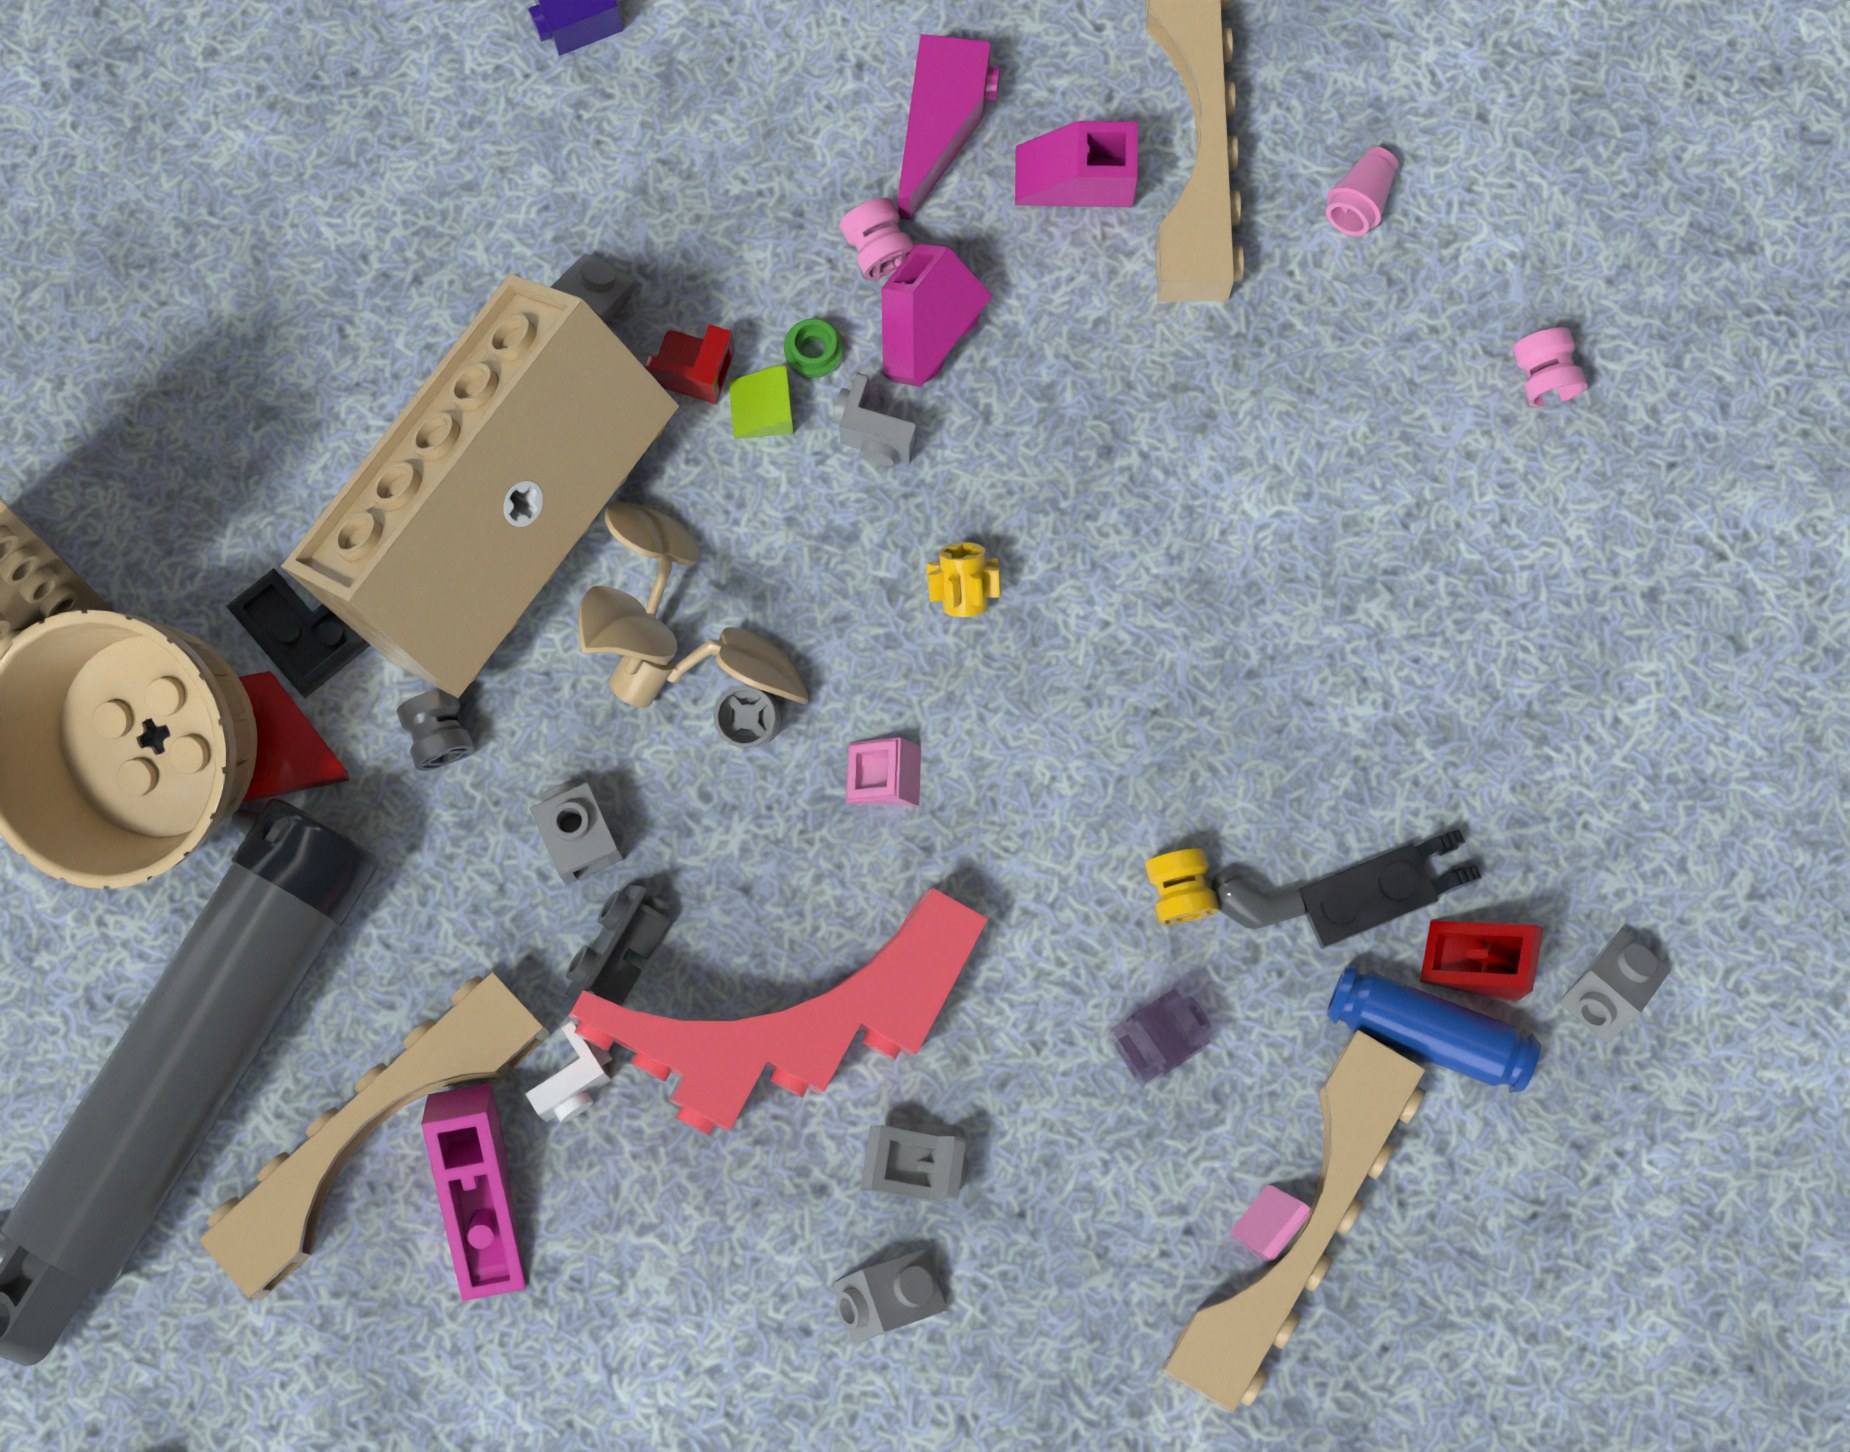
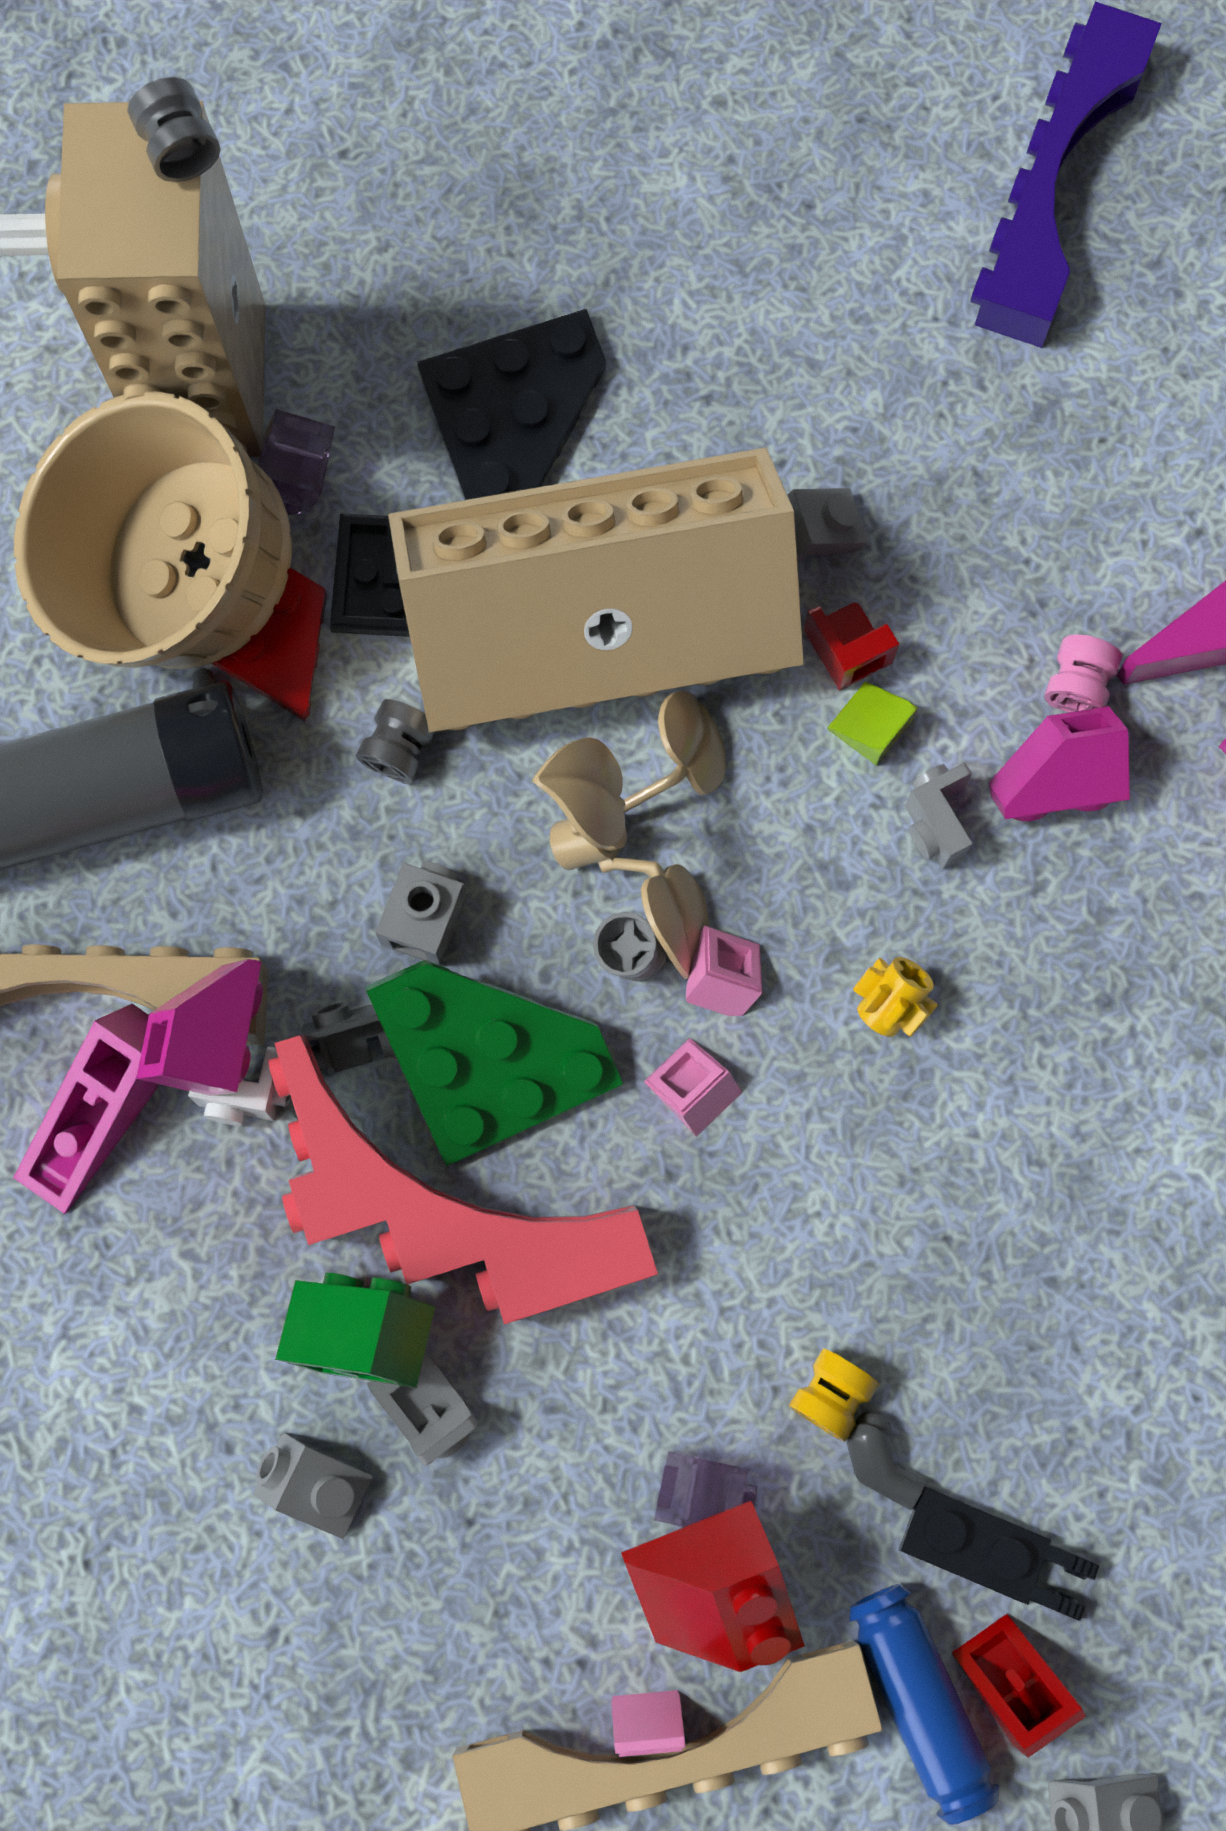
camera: 45 degrees right, 0 degrees up
(155, 590) = (296, 458): none -> clear purple brick
(275, 412) = (513, 401): none -> black plate
(509, 1055) = (203, 1032): none -> dark pink slope
(721, 887) = (486, 1056): none -> green plate
(808, 331) = (961, 698): bright green plate -> none
(819, 1157) = (356, 1329): none -> green brick
(830, 674) = (724, 973): none -> bright pink slope
(1233, 1087) = (716, 1591): none -> red slope

